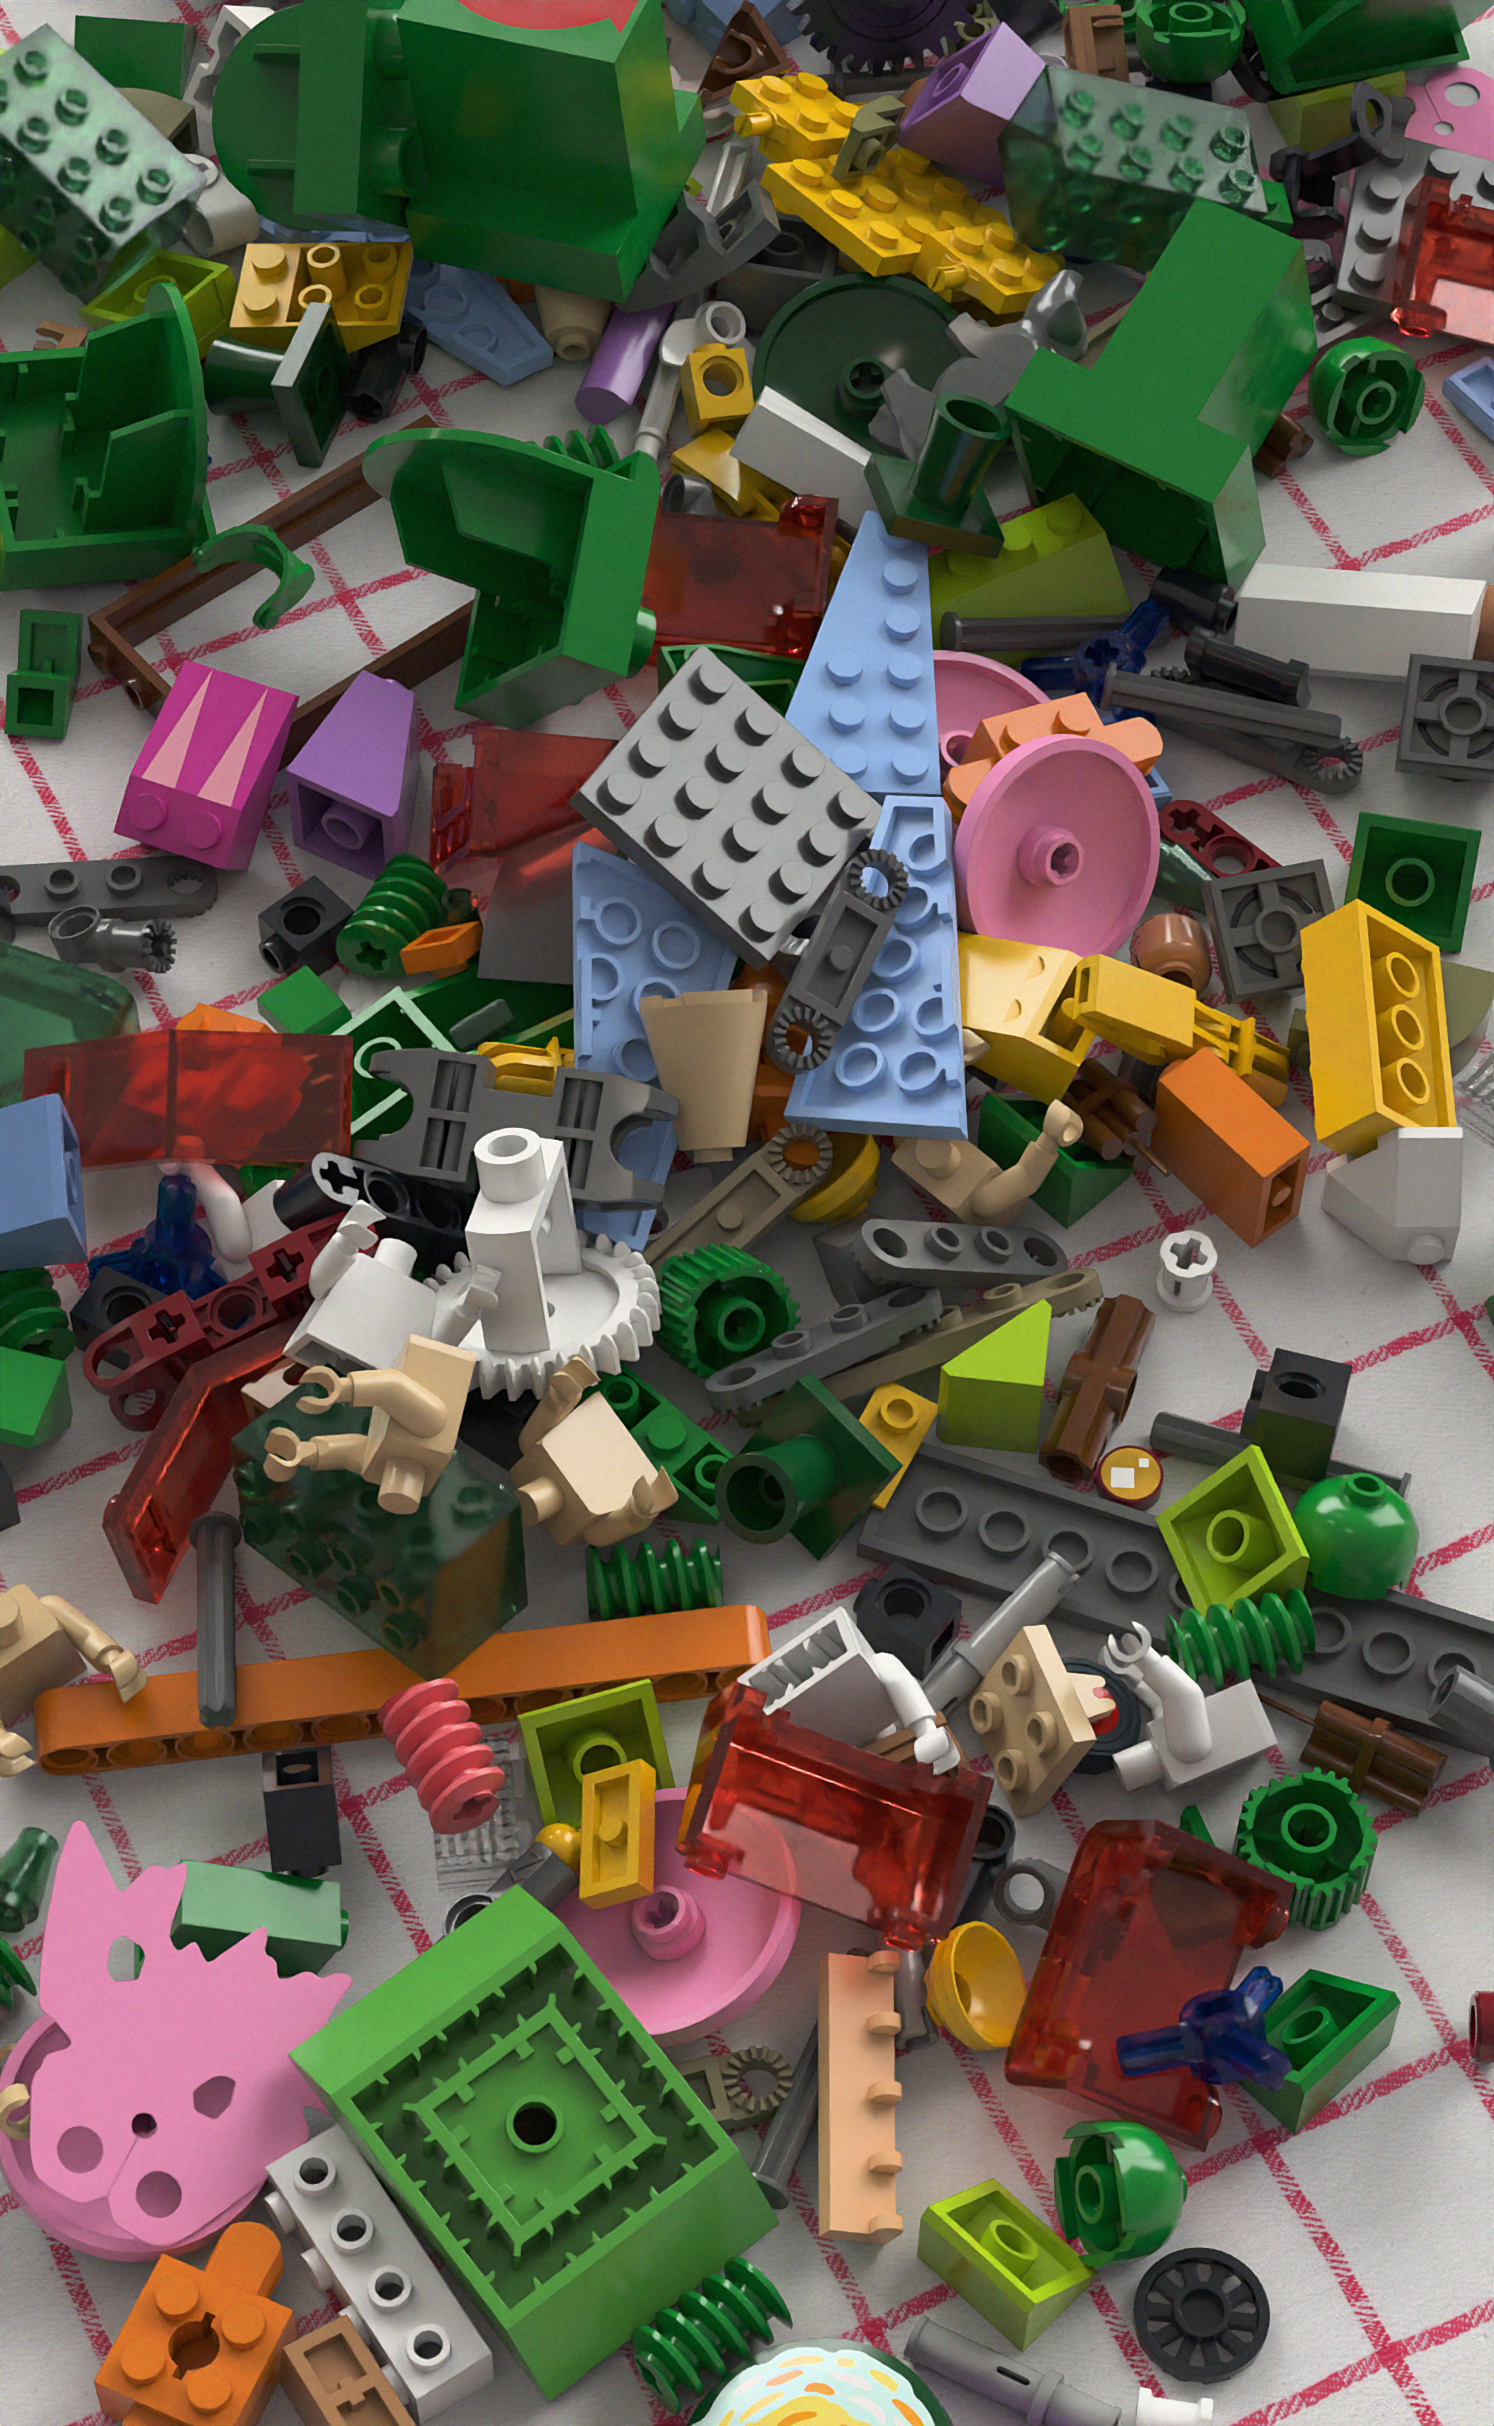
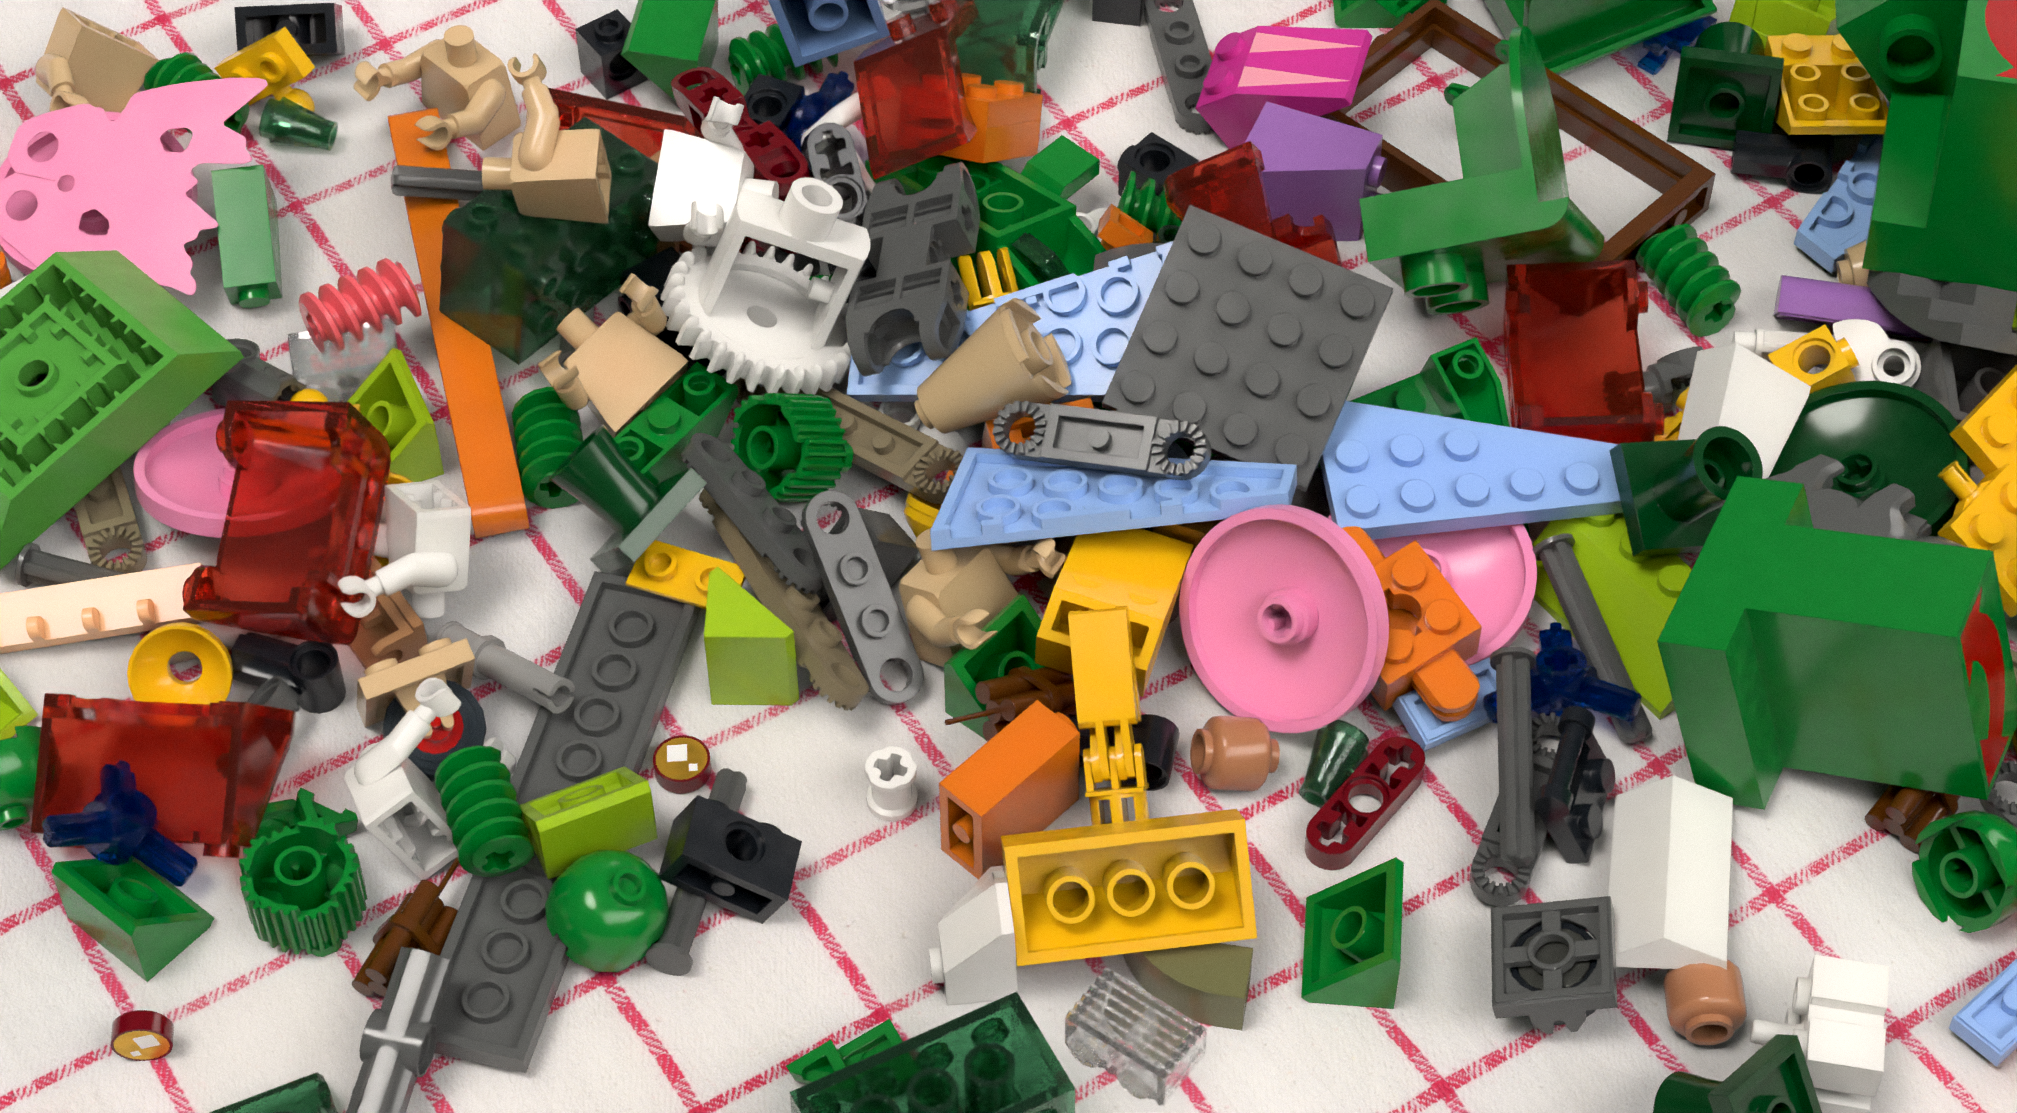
camera: 85 degrees right, 5 degrees down
(111, 941) = (1131, 54): dark grey connector -> none
(301, 1811) = (325, 241): black brick -> none
(917, 1642) = (526, 611): black brick -> none
(1097, 1389) = (764, 728): reddish brown piece -> none
(1195, 600) = (1662, 750): black brick -> none
(1260, 936) = (1279, 813): dark grey piece -> none

